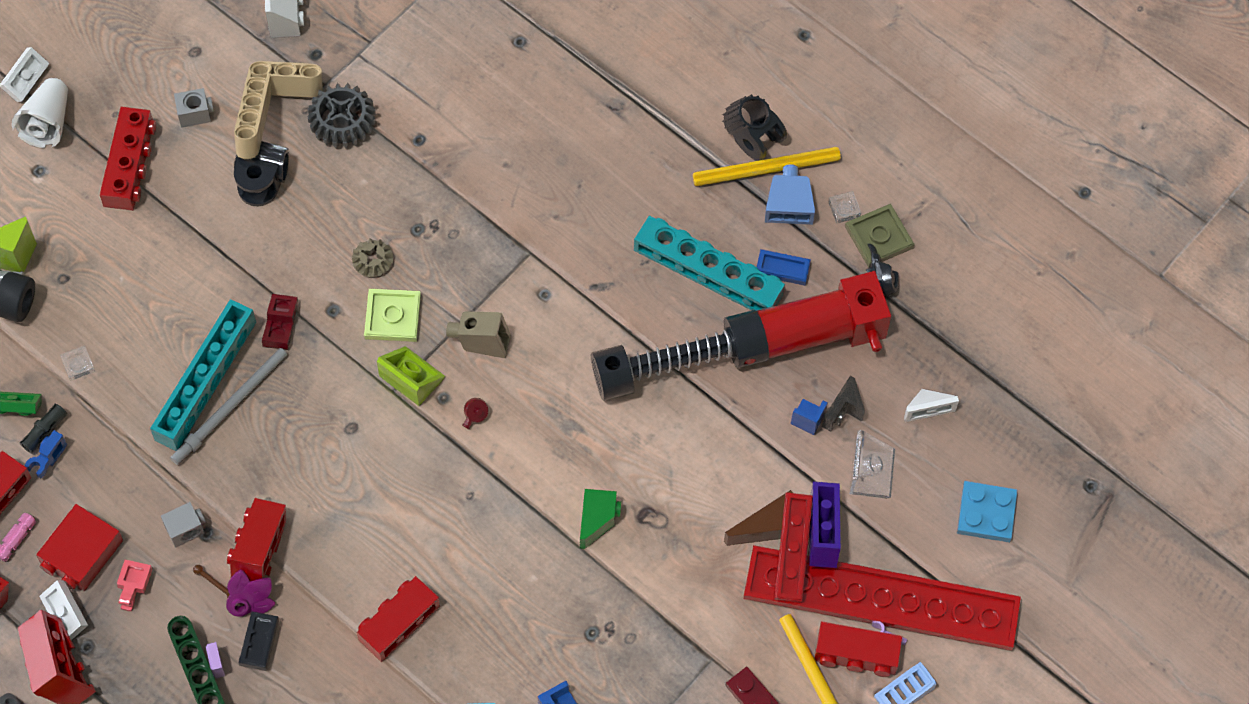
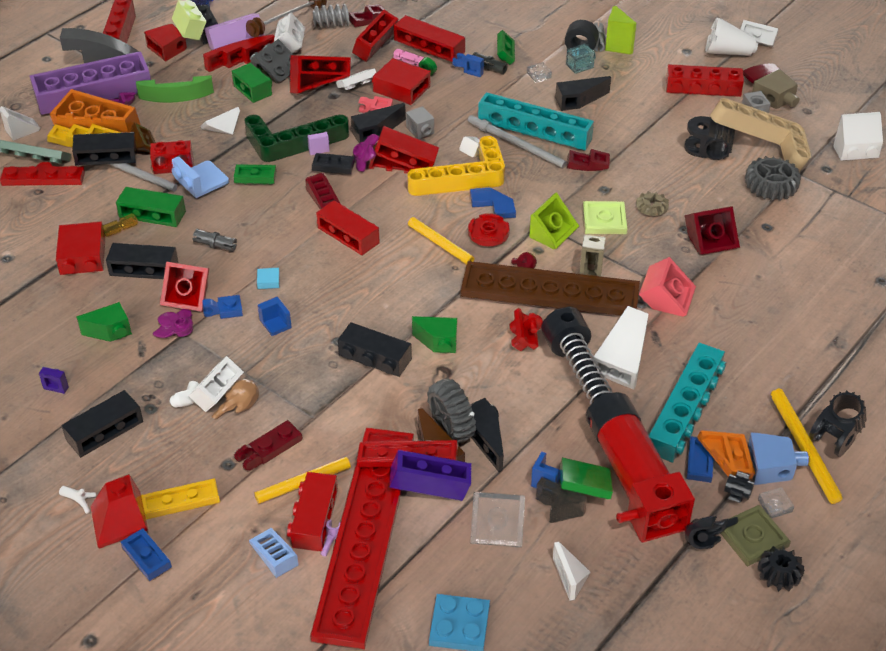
camera: 90 degrees right, 20 degrees down
(46, 511) = (428, 64): none -> green tile
(54, 305) = (580, 58): none -> clear light blue brick
(115, 85) = (759, 71): none -> dark red slope
(139, 320) = (581, 92): none -> black slope
(159, 76) = (778, 89): none -> dark tan torso
(181, 585) = (374, 121): none -> black slope
(232, 460) = (470, 146): none -> white slope
(302, 470) = (461, 177): none -> yellow beam
(316, 666) = (320, 190): none -> dark red slope
(357, 432) = (501, 203): none -> blue tile
(411, 437) = (488, 230): none -> red plate
(424, 509) = (440, 240): none -> yellow piece
(433, 197) = (712, 230): none -> dark red slope
(523, 389) = (549, 288): none -> reddish brown plate
(533, 262) = (667, 288): none -> coral slope
(598, 415) = (525, 329): none -> red hips
(620, 587) = (375, 349): none -> black brick
(626, 317) = (622, 349): none -> white slope
(739, 498) = (451, 409): none -> dark grey gear
(746, 470) = (488, 432): none -> black slope
(782, 237) = (729, 451): none -> orange wing
(820, 375) = (586, 478): none -> green tile
(828, 235) = (739, 486): none -> black gear
(925, 217) = (781, 568): none -> black gear

